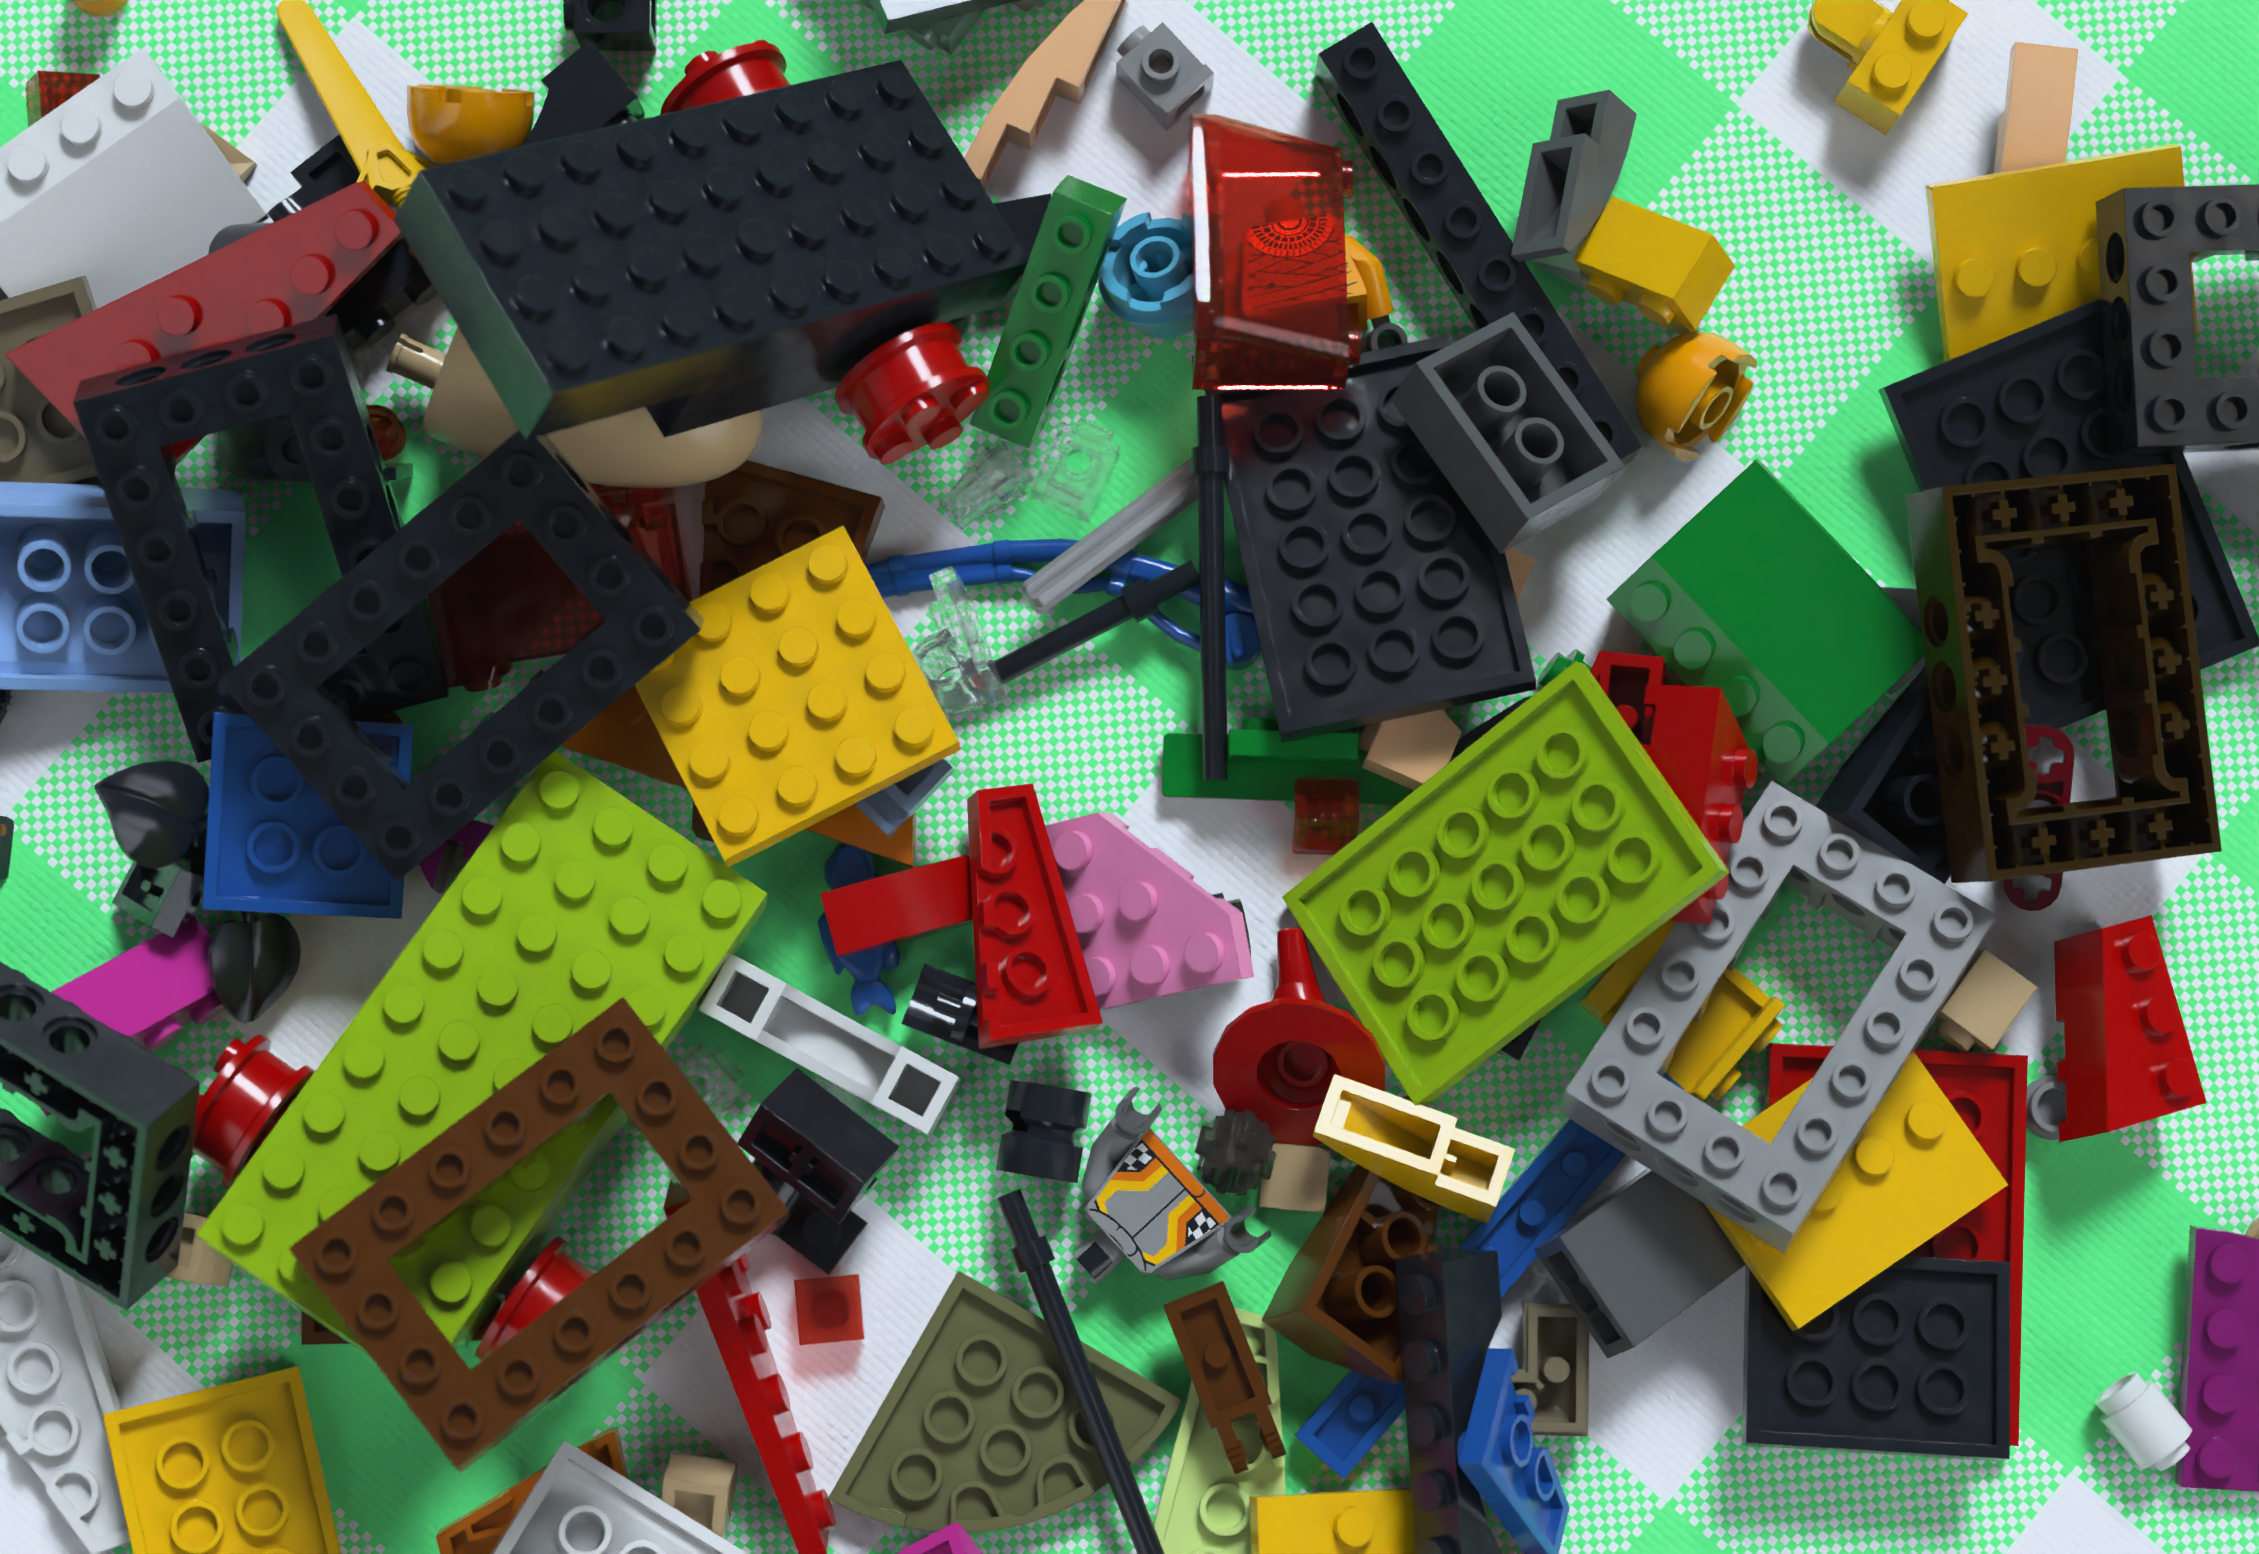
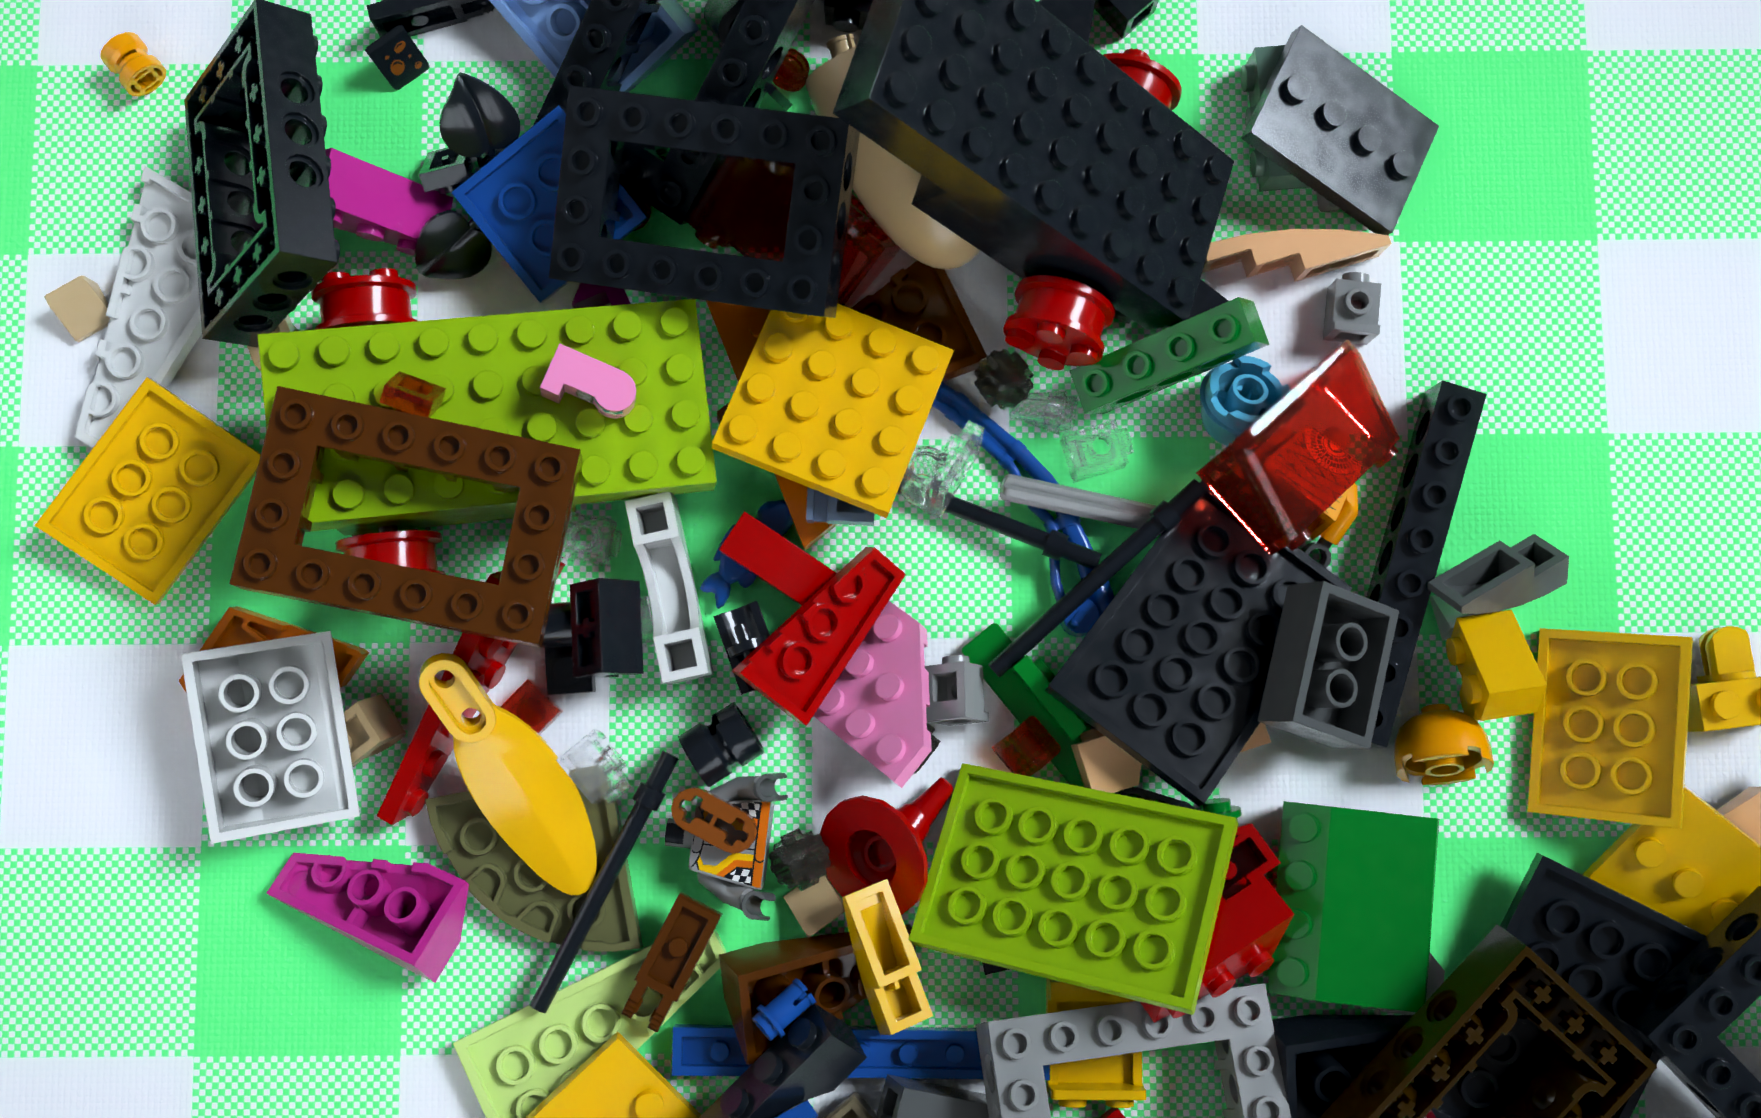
camera: 55 degrees right, 0 degrees up
(409, 1124) = (412, 395): none -> clear red plate
(568, 920) = (589, 380): none -> bright pink leg
(895, 1376) = (514, 778): none -> yellow plant
(917, 500) = (1003, 379): none -> clear smoke gear
(957, 1283) = (596, 769): none -> clear brick
(1124, 1218) = (708, 830): none -> dark orange beam
(1203, 837) = (956, 692): none -> light grey brick
(1375, 1294) = (783, 1010): none -> blue pin
(1816, 203) = (1611, 727): none -> yellow plate

